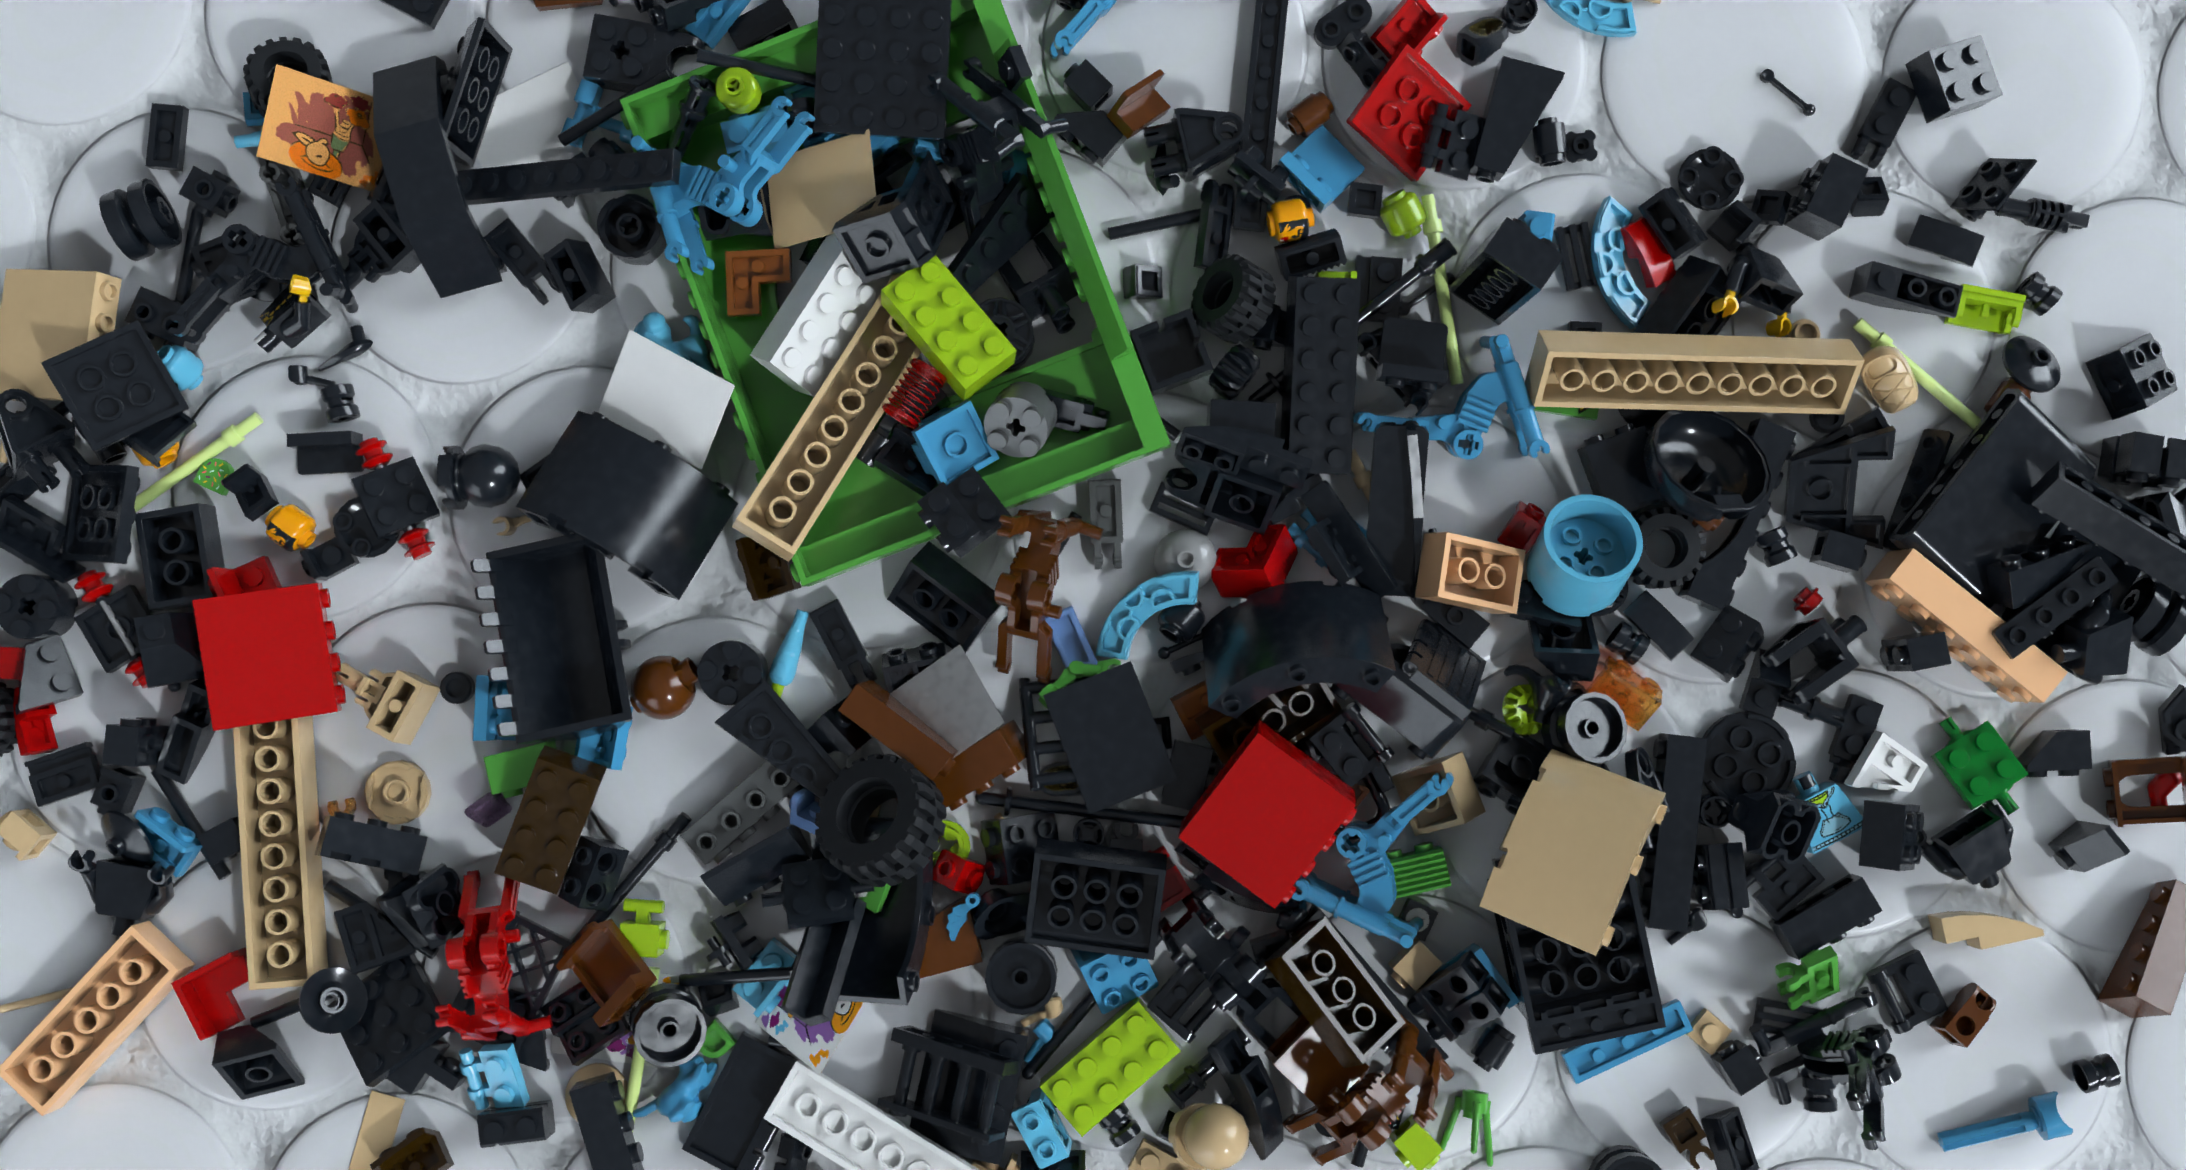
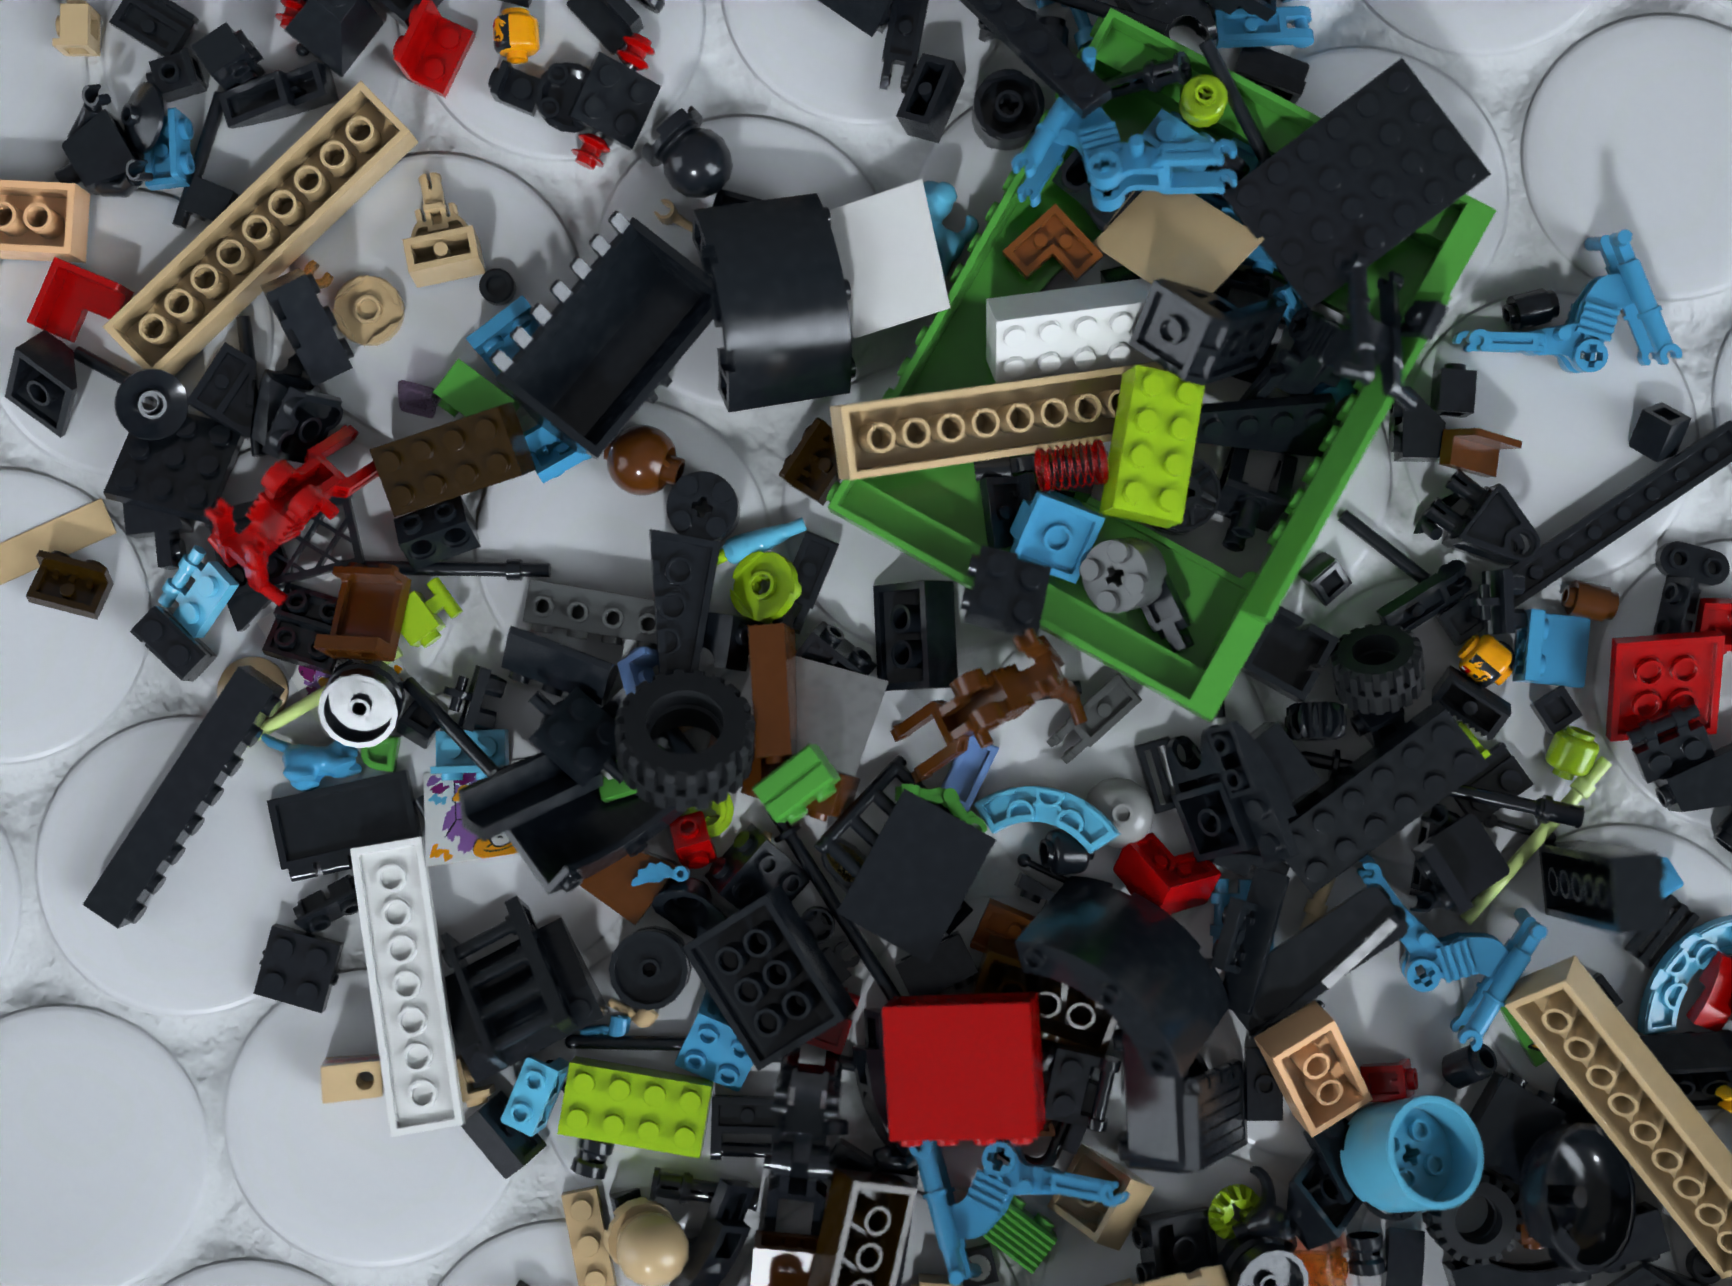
camera: 50 degrees right, 0 degrees up
(268, 655) = (395, 108): red panel -> none
(838, 670) = (782, 591): none -> lime plate
(977, 767) = (797, 784): none -> bright green brick
(1485, 720) = (1197, 1185): black bar -> none
(1557, 465) = (1468, 1066): none -> black brick

